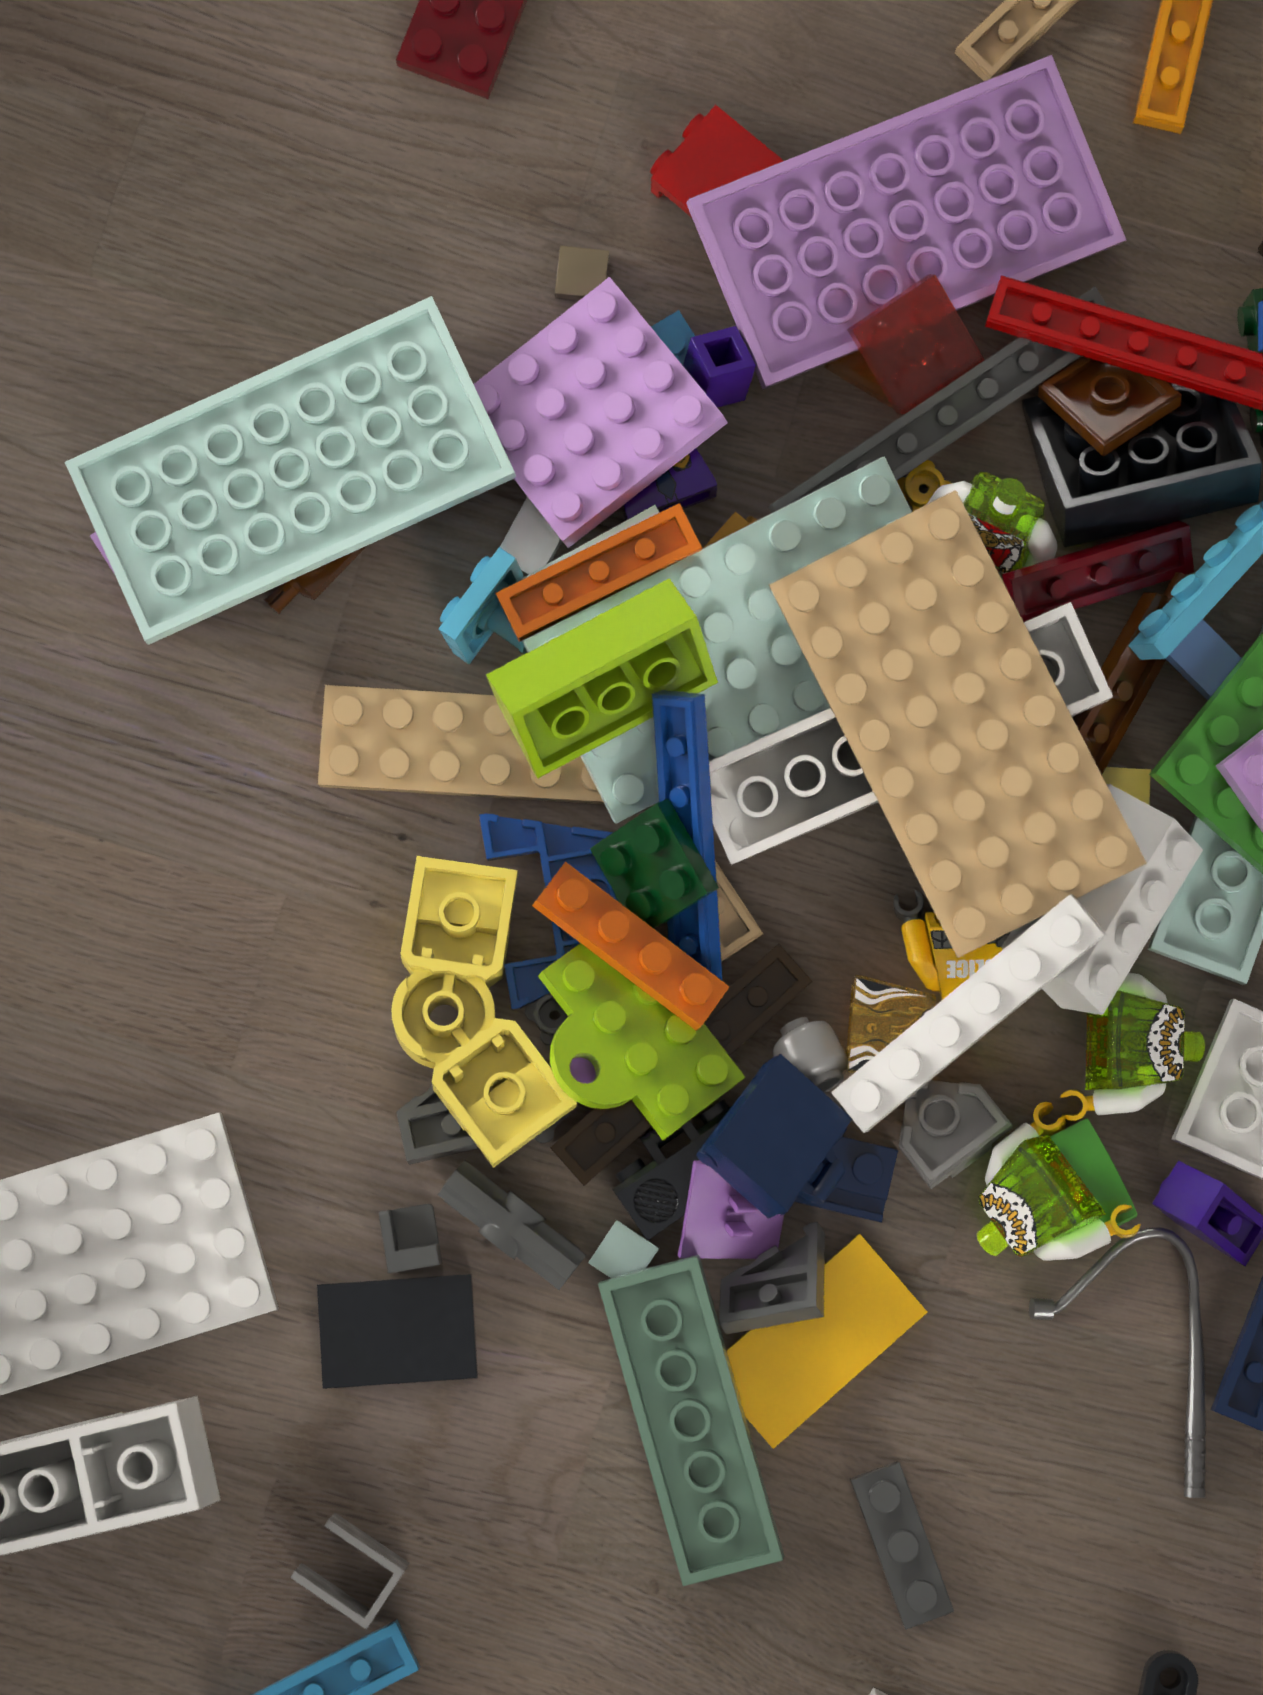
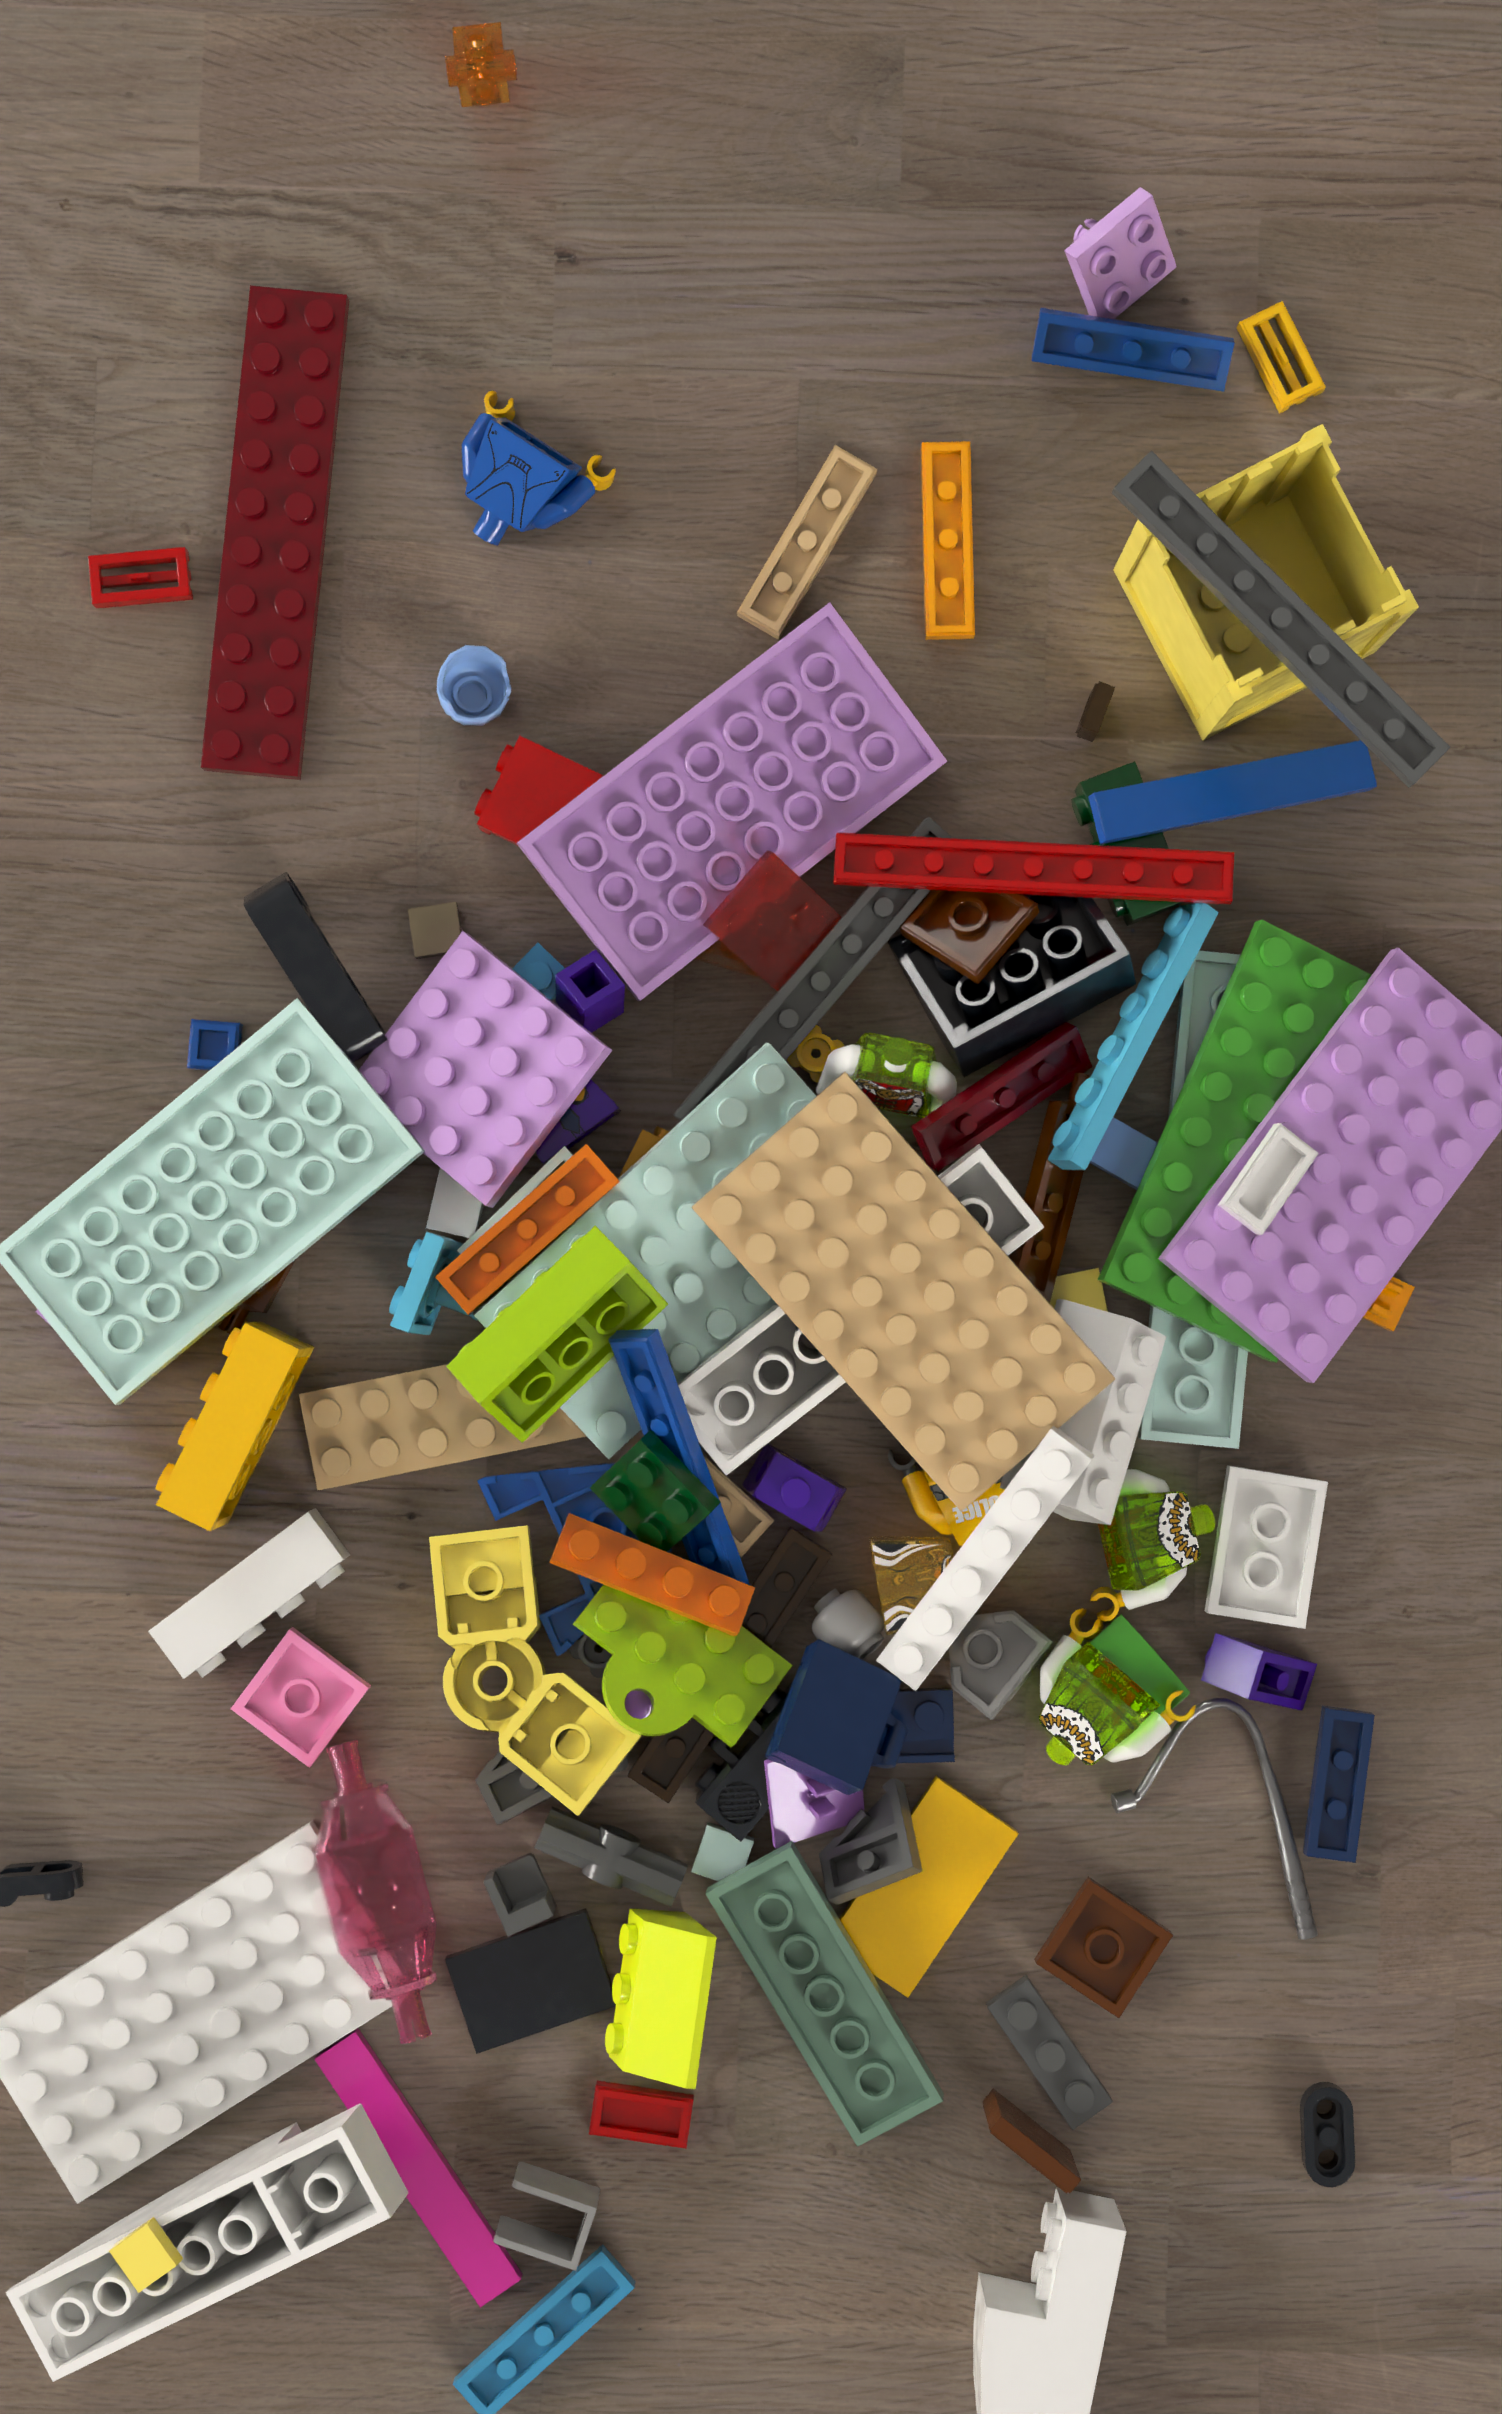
camera: 10 degrees left, 5 degrees up
(223, 867) = (249, 1594): none -> white brick
(242, 1509) = (427, 2175): none -> dark pink tile
(245, 983) = (300, 1697): none -> bright pink plate
(255, 691) = (233, 1425): none -> yellow brick
(268, 1192) = (376, 1892): none -> clear pink plate
(331, 322) = (211, 1042): none -> blue tile
(456, 274) = (313, 966): none -> black beam
(471, 1497) = (641, 2114): none -> red tile
(526, 1375) = (661, 1996): none -> neon yellow slope
(682, 48) = (473, 685): none -> light blue hair
(793, 905) = (793, 1488): none -> dark purple torso
(862, 1624) = (1031, 2141): none -> reddish brown tile
(984, 1450) = (1103, 1947): none -> reddish brown plate

